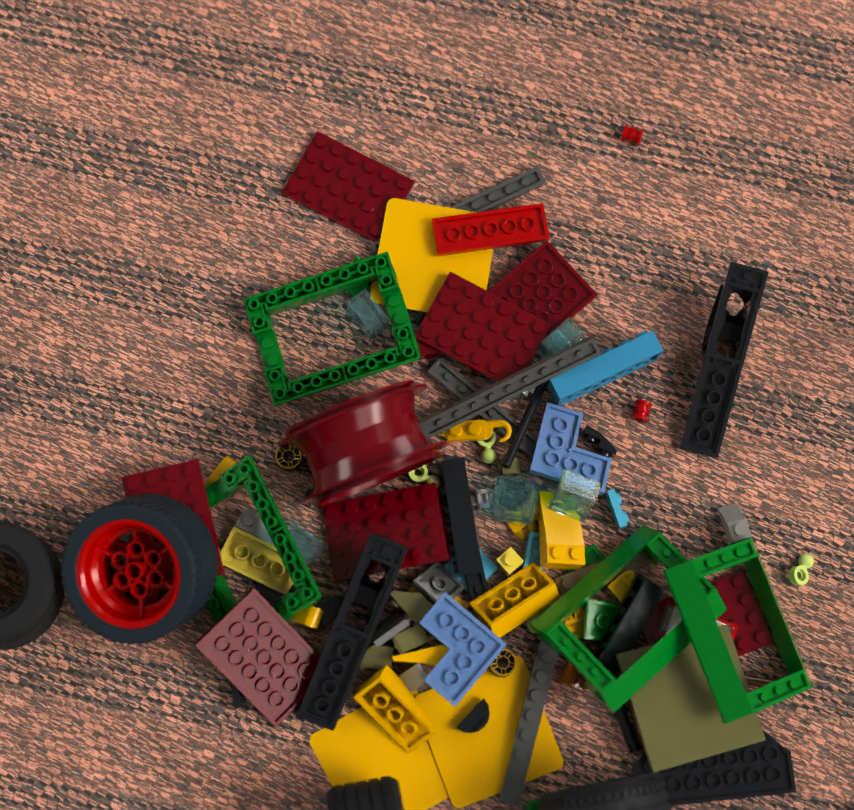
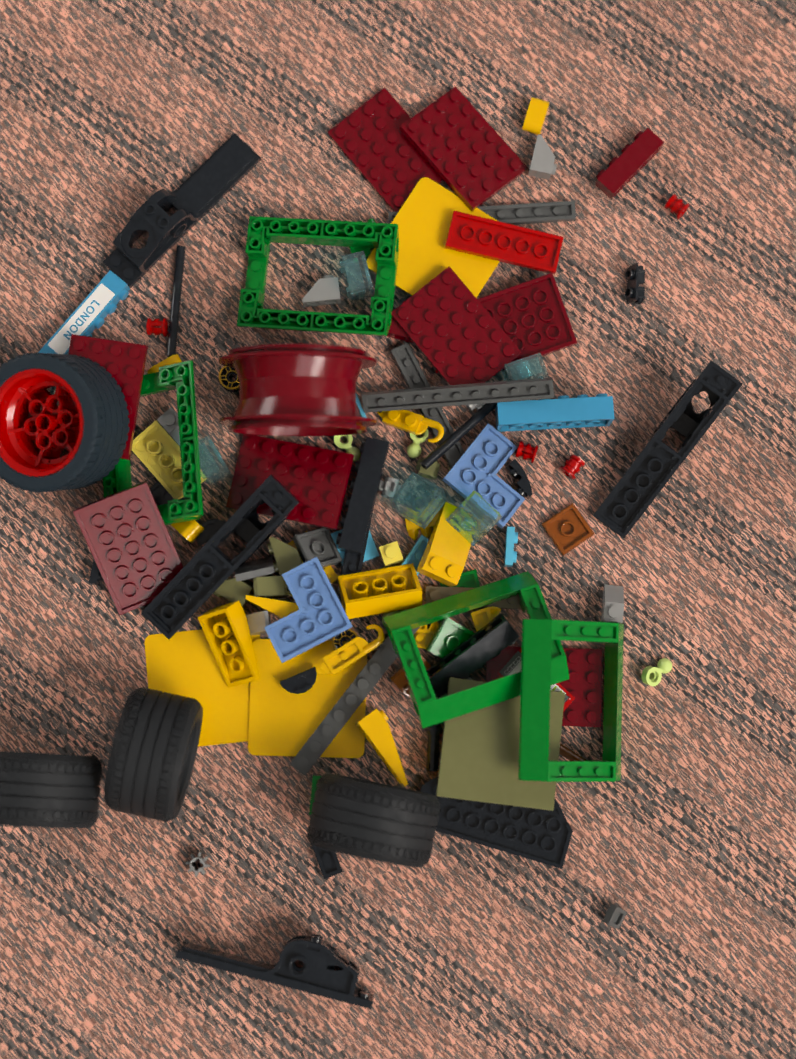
camera: 25 degrees right, 5 degrees up
(126, 453) = (89, 313): none -> brick
(180, 306) = (192, 203): none -> black piece
(204, 406) = (175, 301): none -> black piece
(204, 438) = (157, 331): none -> red bush
(342, 342) = (323, 292): none -> light grey slope
(414, 158) = (463, 148): none -> dark red plate
(468, 103) = (535, 116): none -> yellow beam
(492, 141) = (542, 160): none -> light grey slope
(513, 670) = (350, 652): none -> yellow plate
(572, 113) = (629, 163): none -> dark red brick
(574, 739) = (379, 736): none -> yellow slope
(593, 414) = (527, 451): none -> red bush
(622, 212) = (635, 275): none -> black hinge
(662, 471) = (567, 529): none -> dark orange tile

